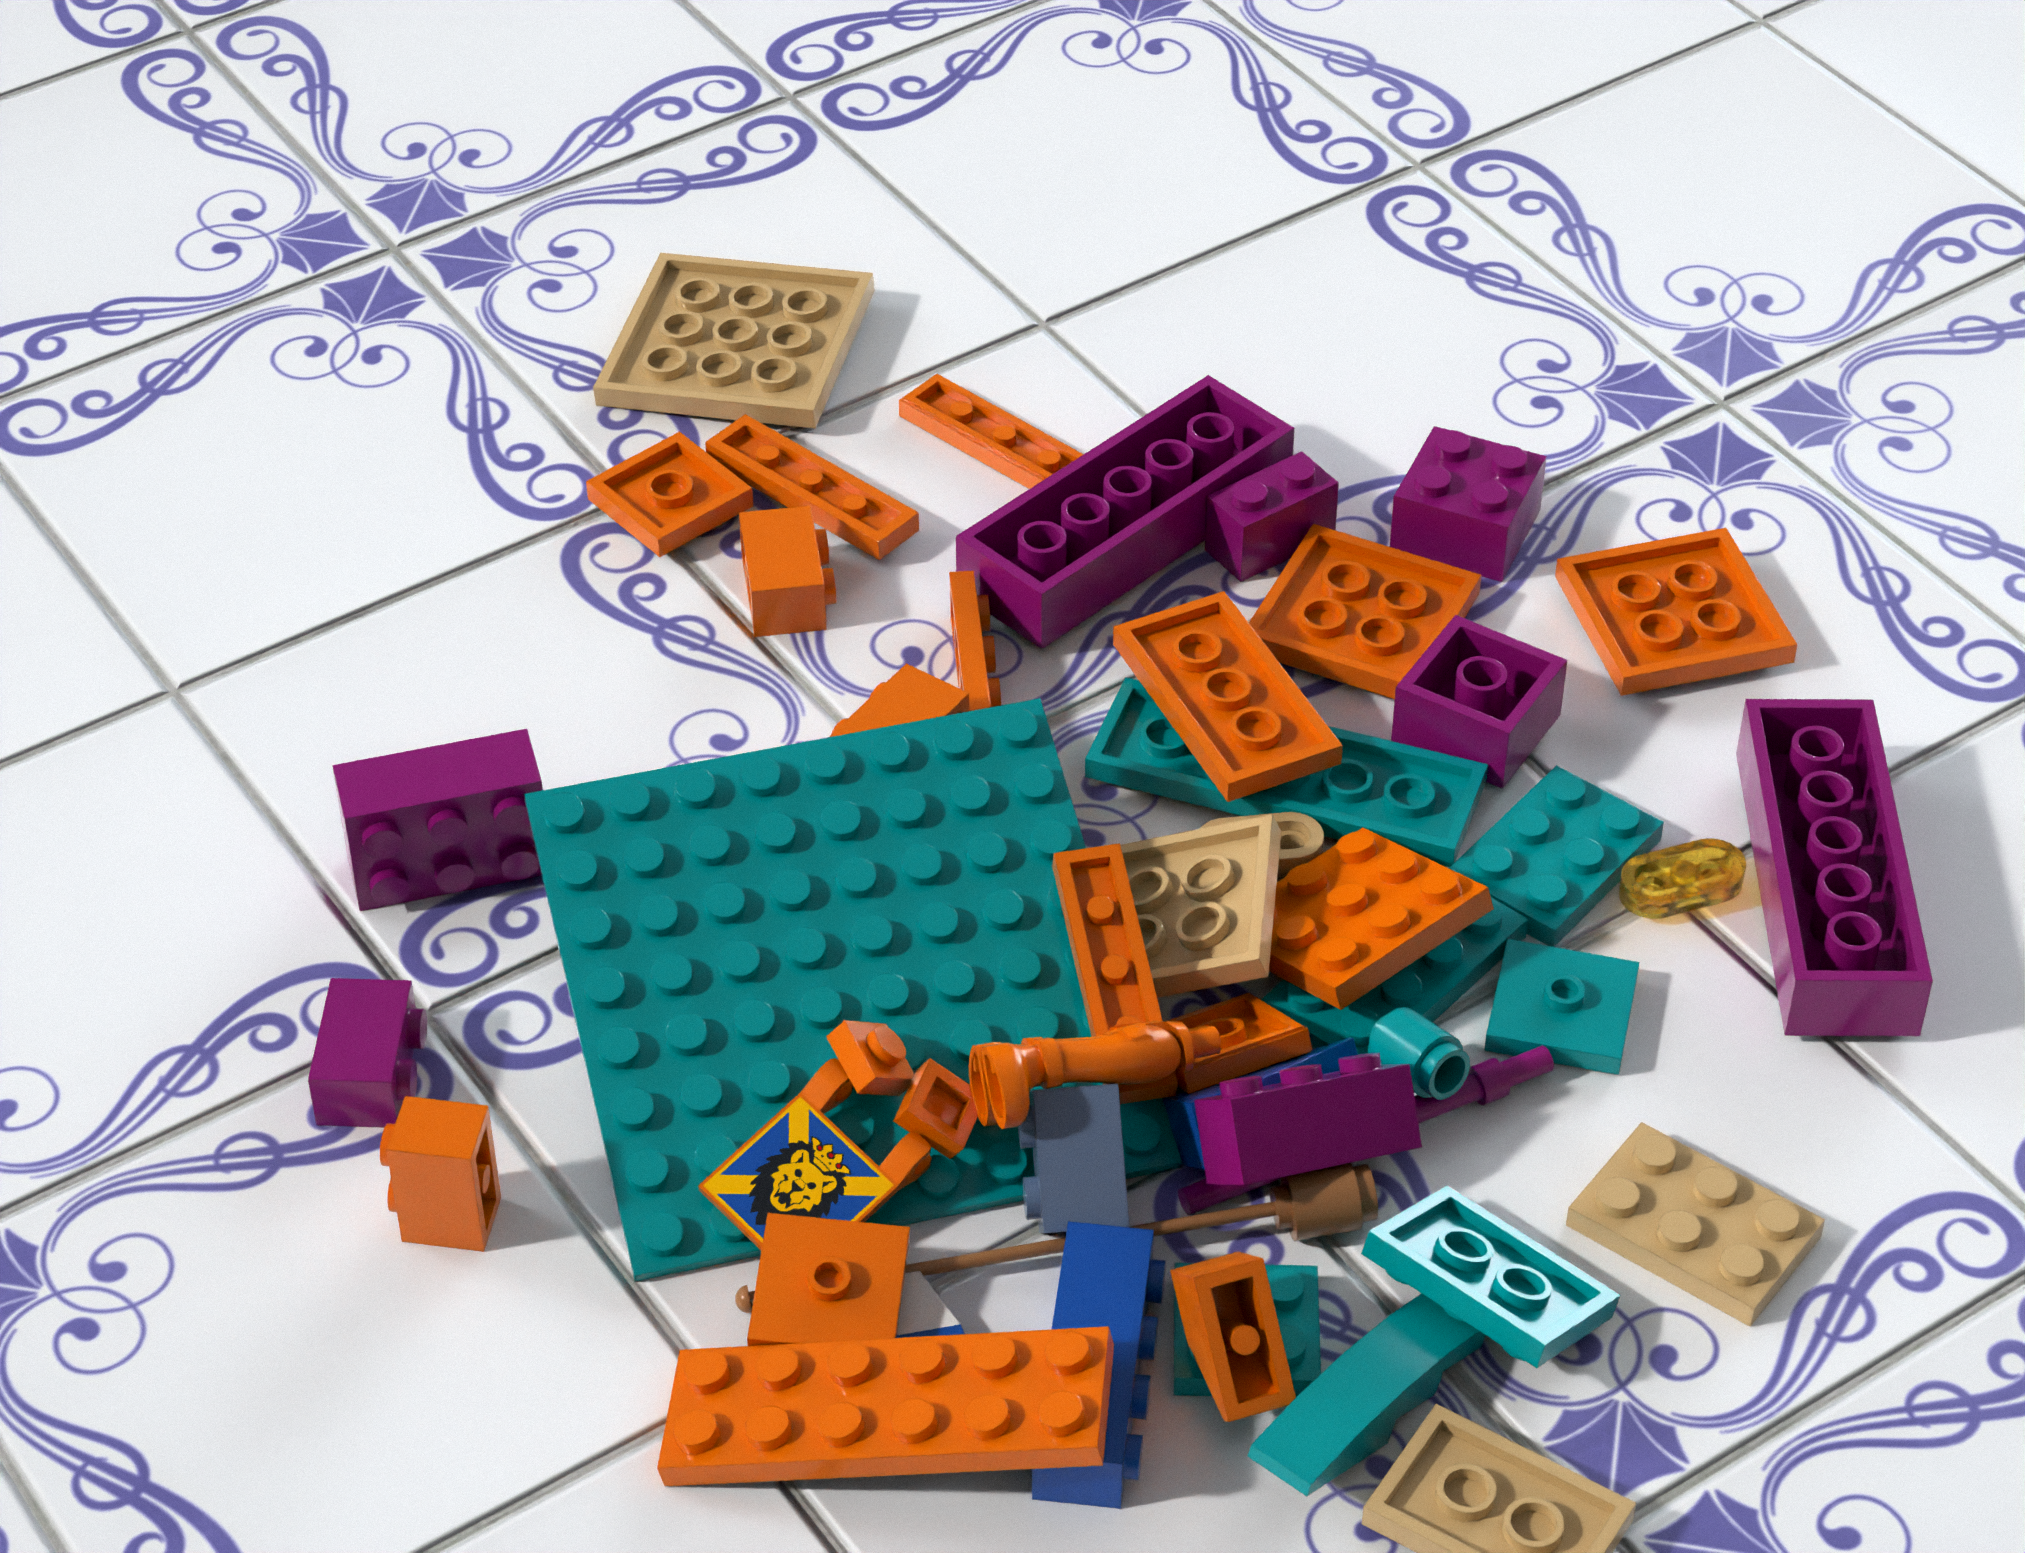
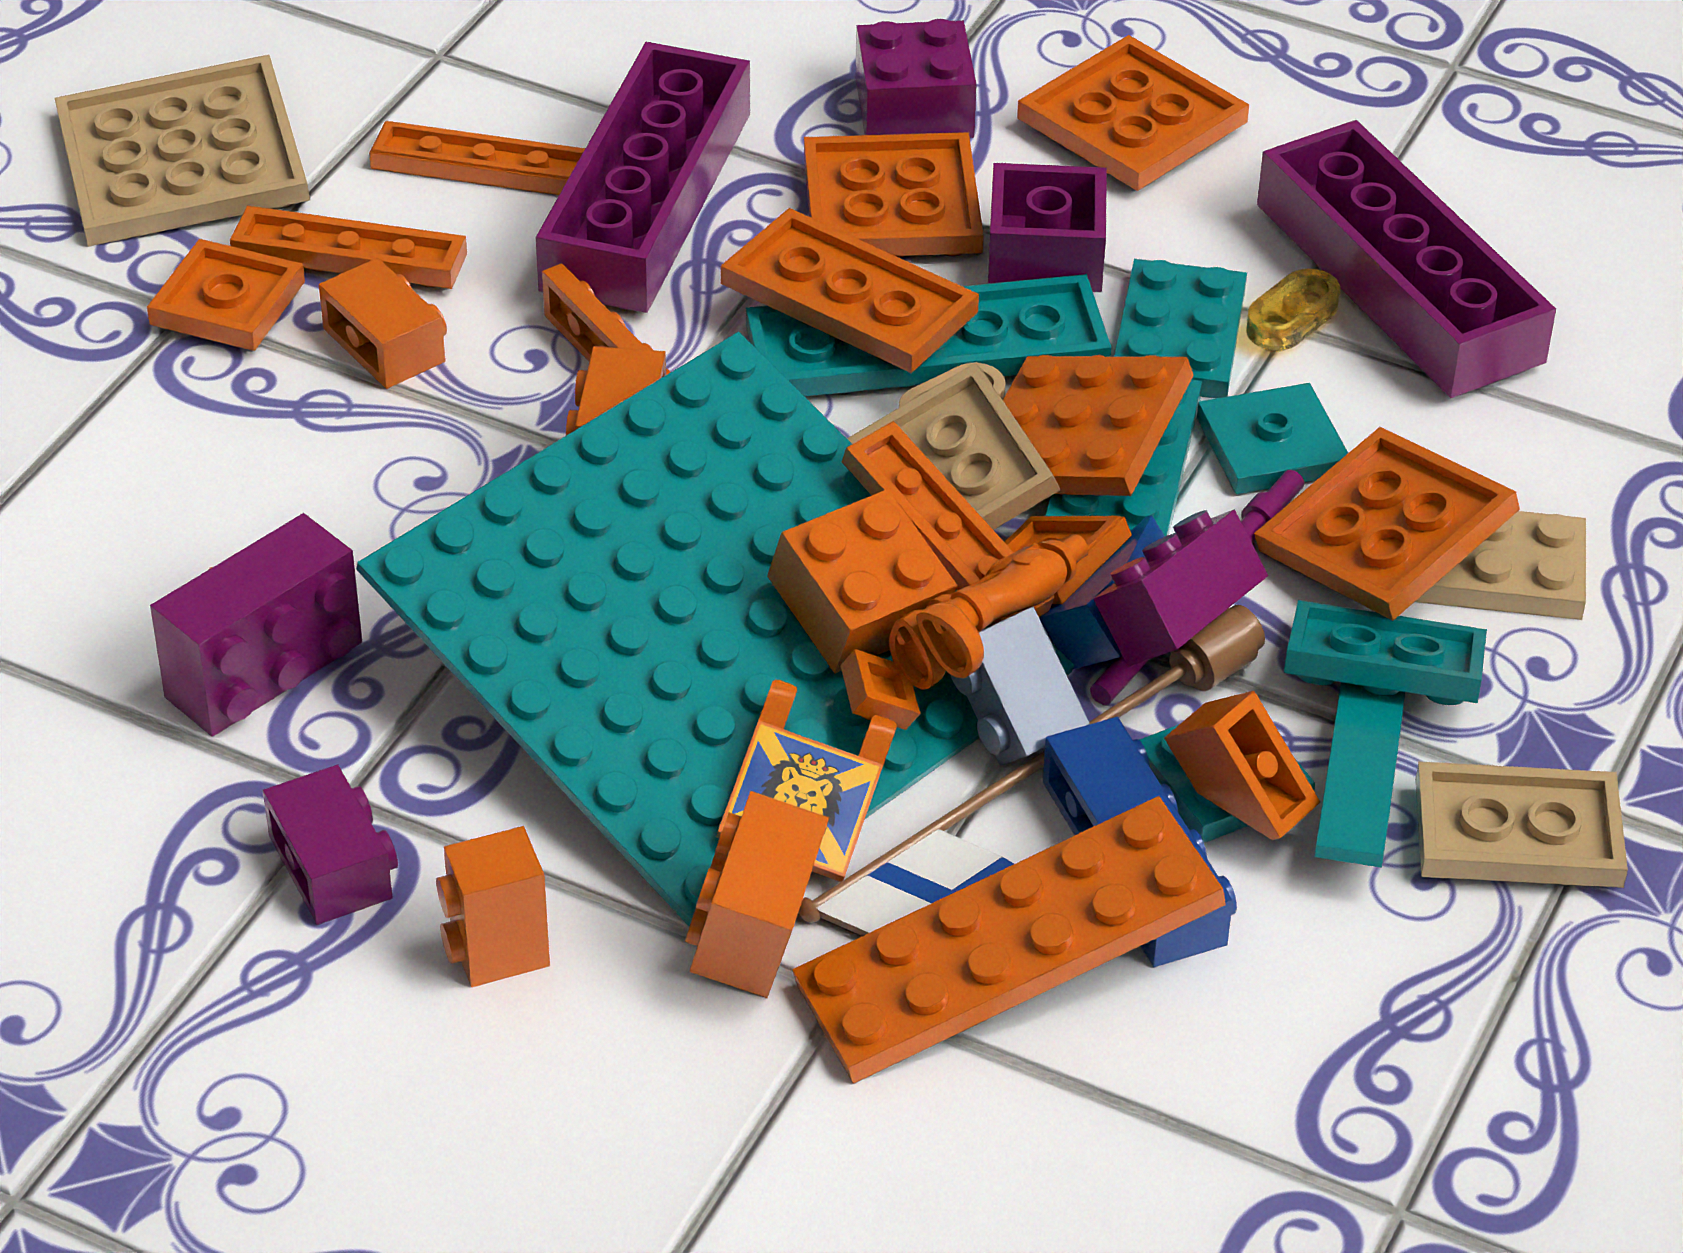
camera: 30 degrees left, 0 degrees up
(671, 1260) = (754, 892): none -> orange brick
(828, 1281) = (884, 864): orange plate -> none
(872, 1057) = (803, 666): orange plate -> none
(982, 982) = (856, 575): none -> orange brick
(1268, 515) = (764, 142): magenta brick -> none
(1434, 1055) = (1214, 494): teal brick -> none
(1589, 1140) = (1387, 522): none -> orange plate

